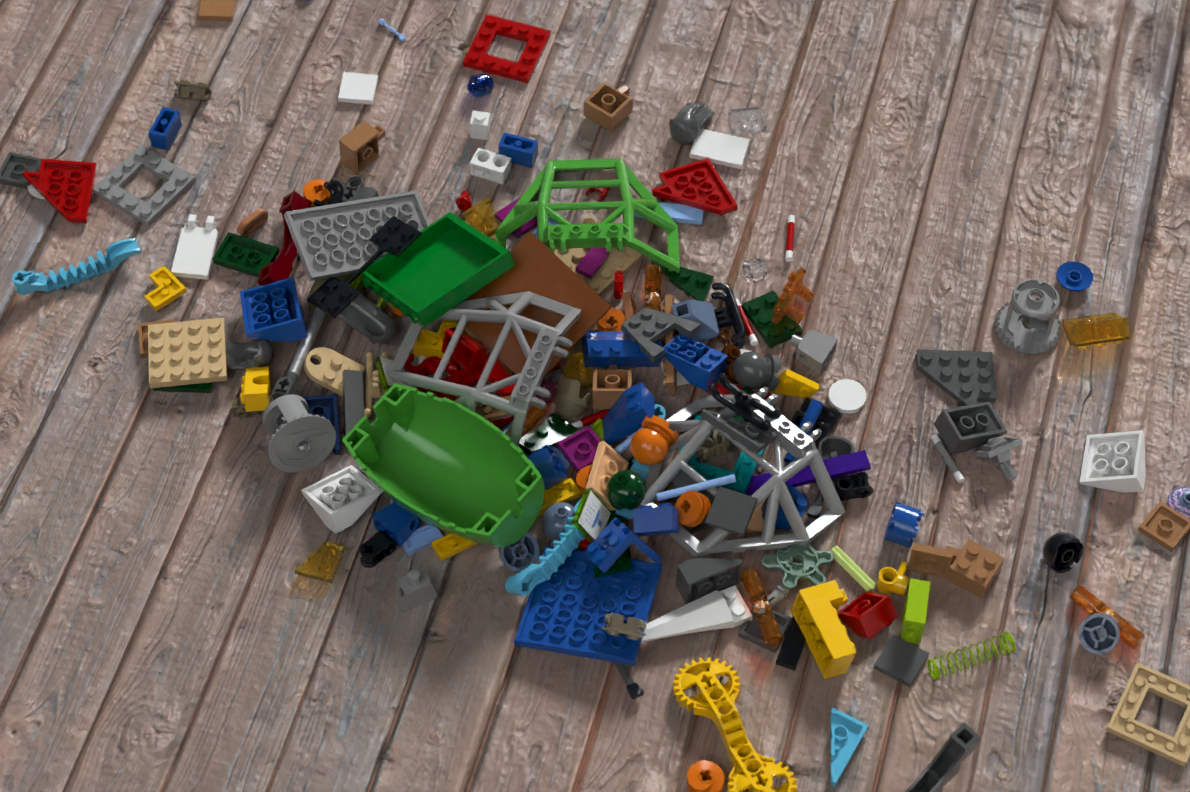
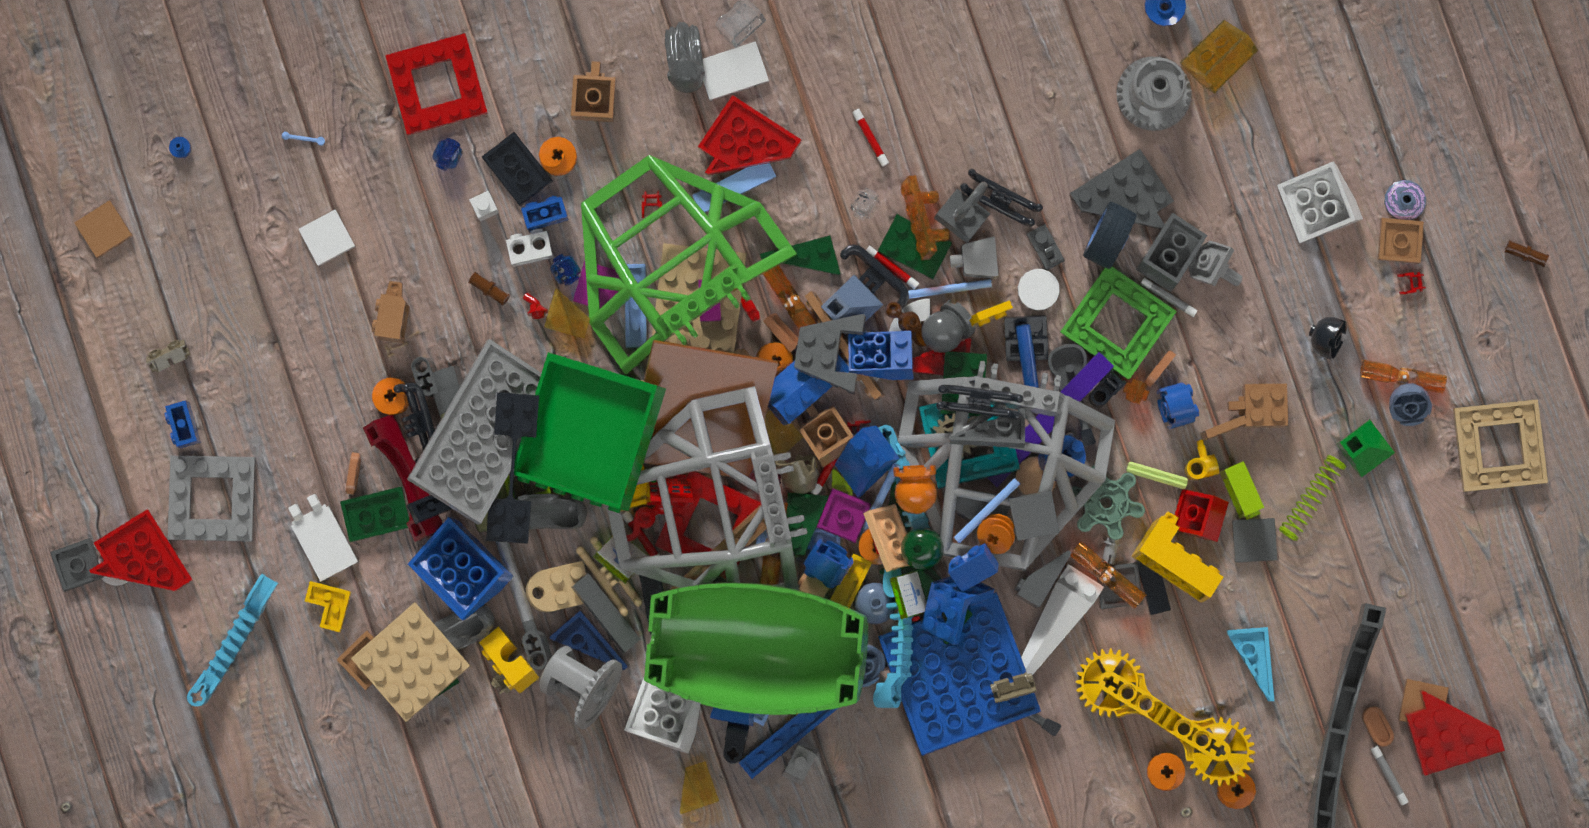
camera: 35 degrees left, 30 degrees up
(288, 265) = (427, 508): none -> black tile
(434, 567) = (782, 741): none -> blue plate
(442, 173) = (489, 288): none -> reddish brown pin
(505, 190) = (565, 269): none -> clear blue head
(522, 118) = (517, 169): none -> black tile
(555, 126) = (547, 156): none -> orange piece
(785, 361) = (950, 288): none -> light blue bar
(822, 312) = (963, 214): none -> dark grey tile
(859, 324) = (1001, 199): none -> black piece
(872, 373) = (1045, 247): none -> dark grey plate
(876, 500) = (1136, 391): none -> clear orange gear
(907, 496) = (1161, 366): none -> nougat tile
(908, 420) = (1116, 283): none -> bright green plate
(928, 380) = (1110, 235): none -> black wheel
(1039, 646) = (1365, 448): none -> green slope
(1159, 554) = (1410, 276): none -> red piece

